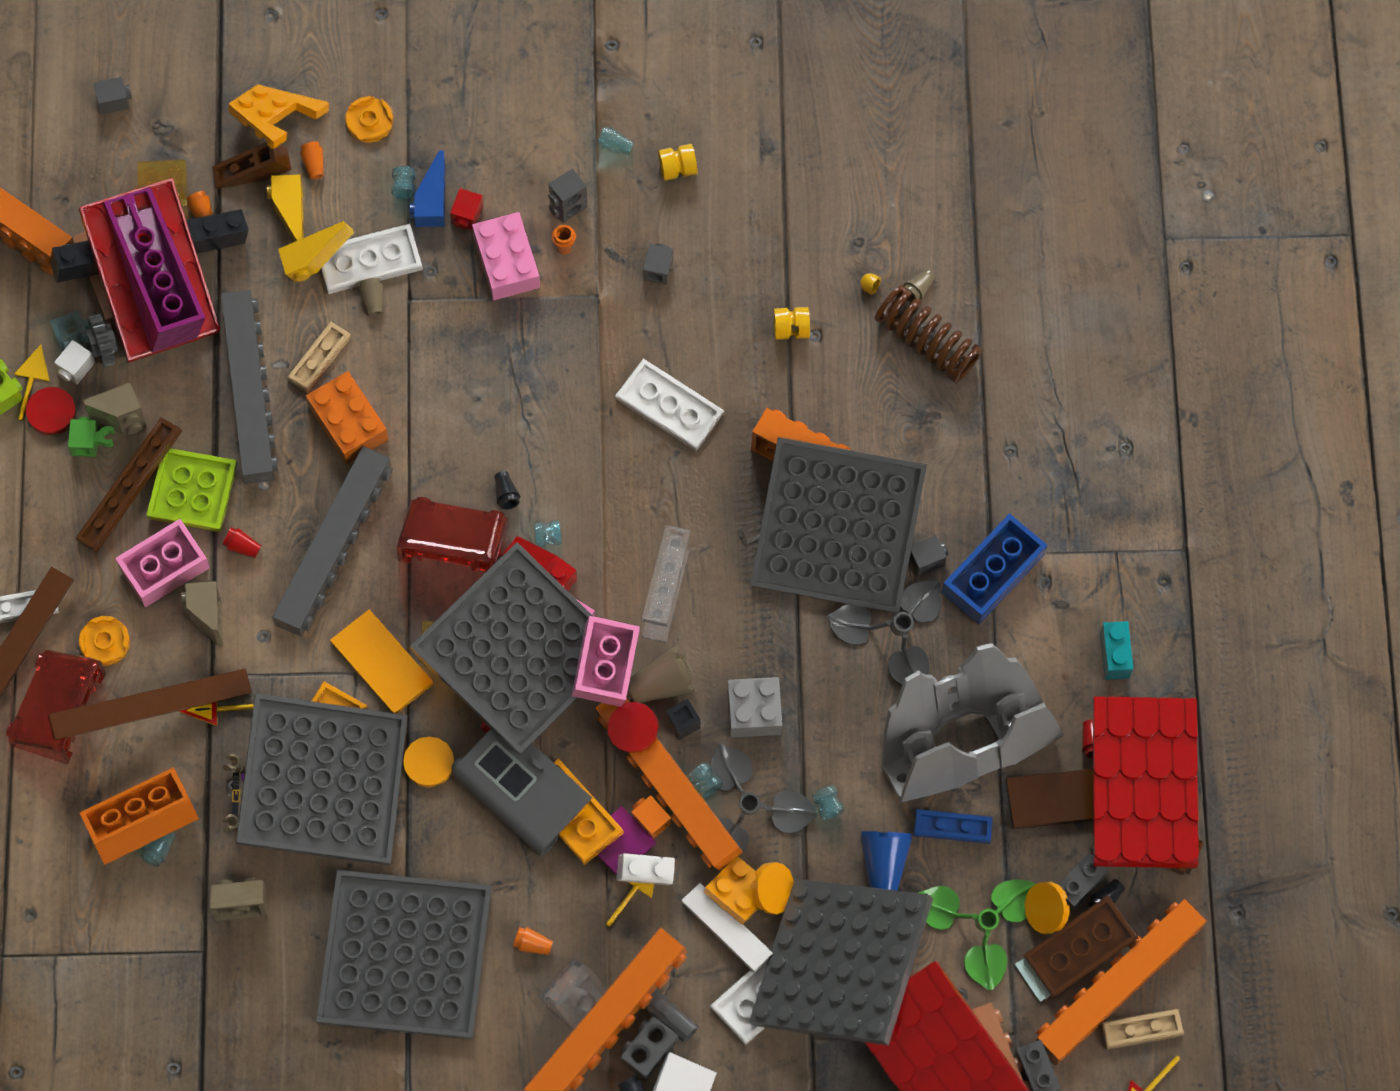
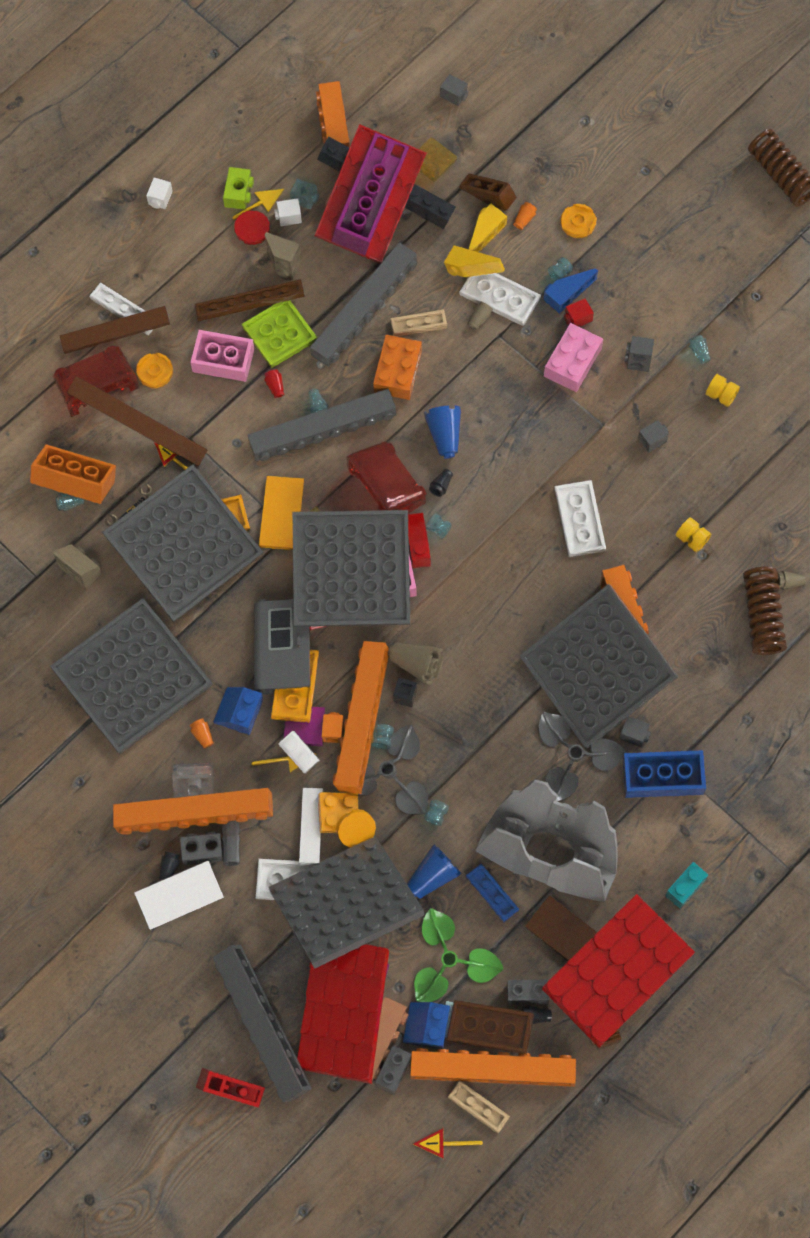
camera: 50 degrees right, 0 degrees up
(85, 437) = (254, 256): bright green brick -> none
(101, 340) = (312, 211): dark grey gear -> none
(199, 204) = (439, 187): orange cone -> none
(204, 608) = (218, 399): dark tan slope -> none
(266, 106) = (529, 165): light orange wing -> none
(304, 524) = (317, 402): none -> clear light blue cone
(428, 761) = (250, 587): light orange tile -> none
(458, 436) = (445, 429): none -> blue cone
(542, 886) = (239, 709): none -> blue slope
(563, 238) = (613, 375): orange cone -> none
(605, 661) = (387, 617): bright pink brick -> none
(633, 727) = (369, 669): red tile -> none
(666, 584) = (469, 609): clear fence -> none
(754, 707) = (450, 722): light grey brick -> none
(870, 283) = (763, 554): yellow hinge -> none
(1023, 1001) = (426, 1024): none -> blue slope
(1046, 907) = (493, 986): light orange tile -> none

